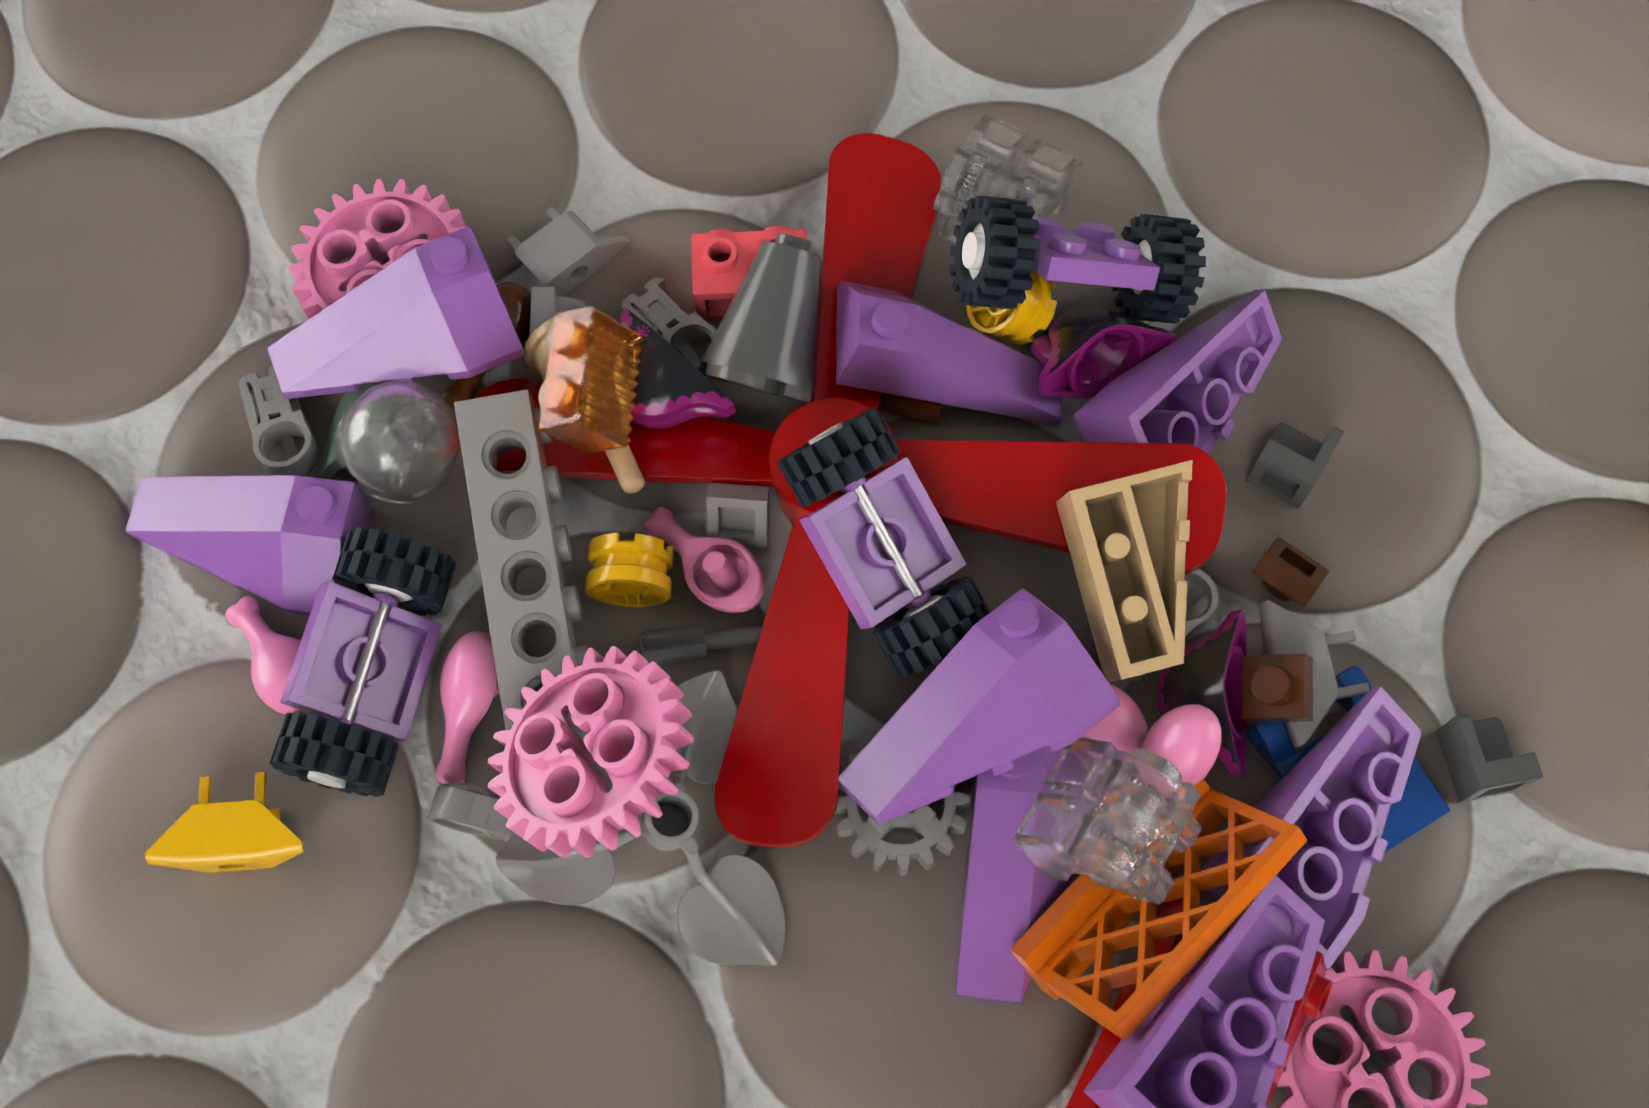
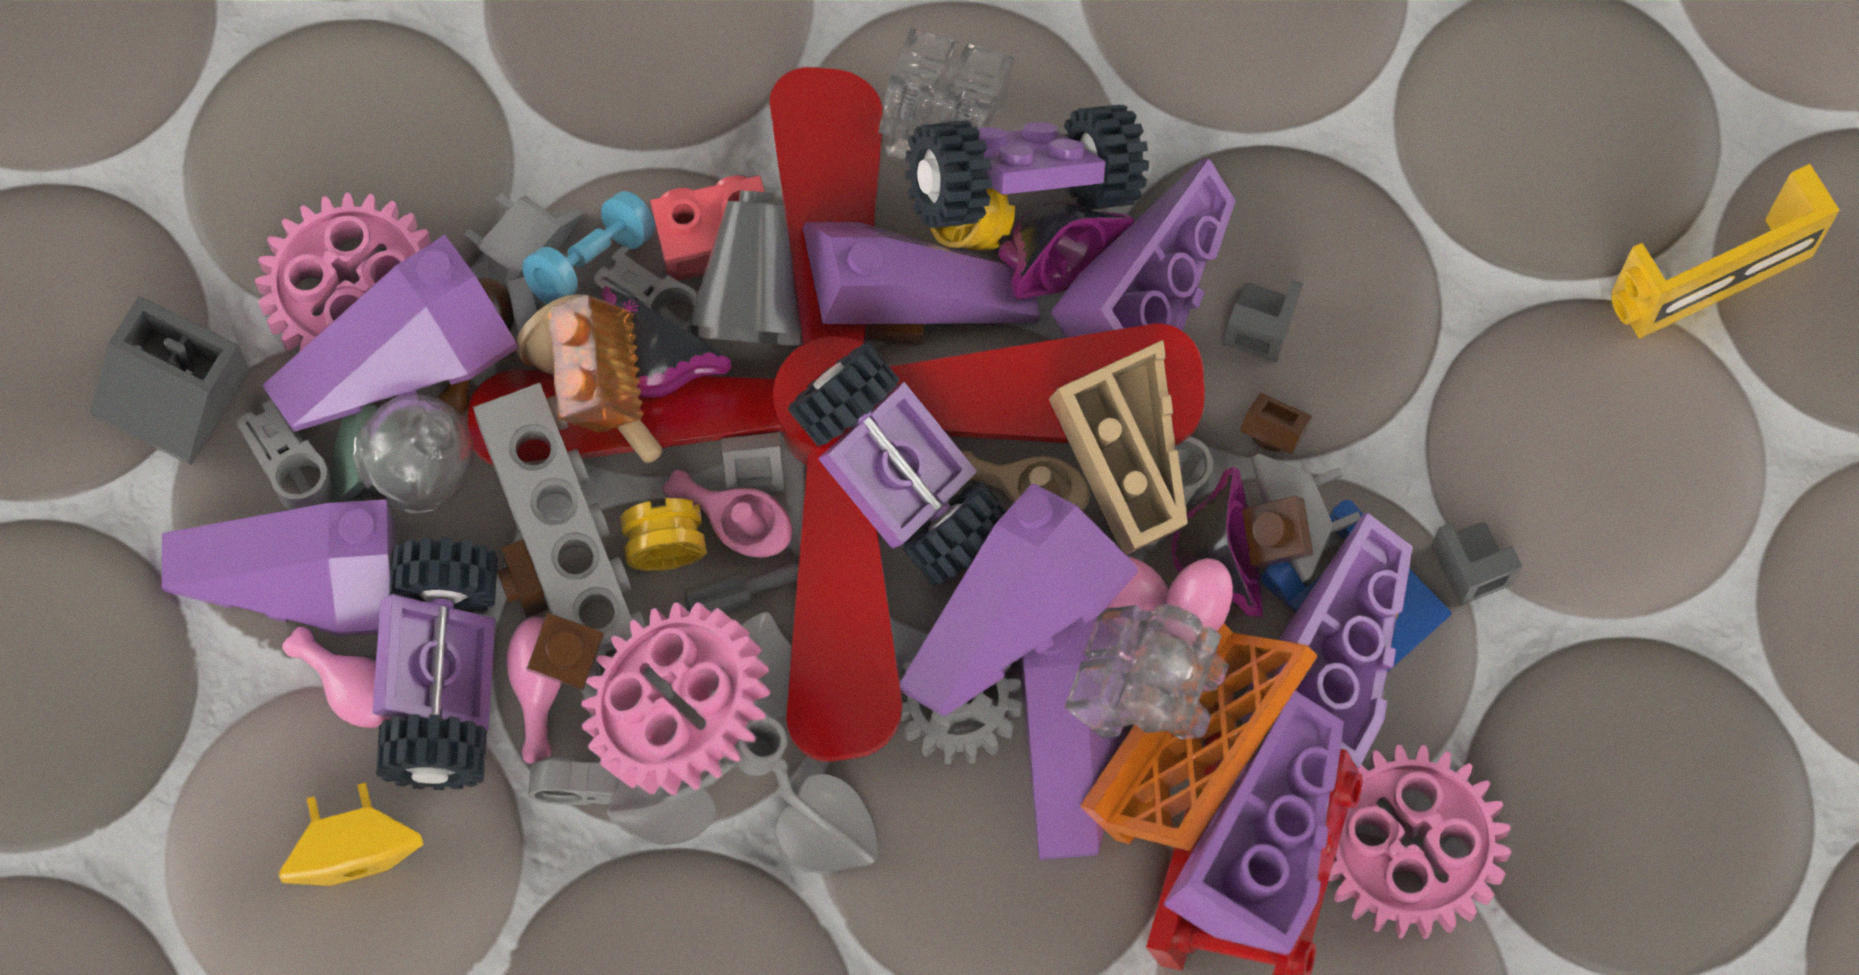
camera: 15 degrees left, 0 degrees up
(180, 327) = (167, 380): none -> dark grey slope
(469, 589) = (521, 580): none -> reddish brown plate
(491, 675) = (565, 651): none -> reddish brown plate
(665, 252) = (625, 220): none -> medium azure wheel
(1036, 577) = (1043, 471): none -> tan piece

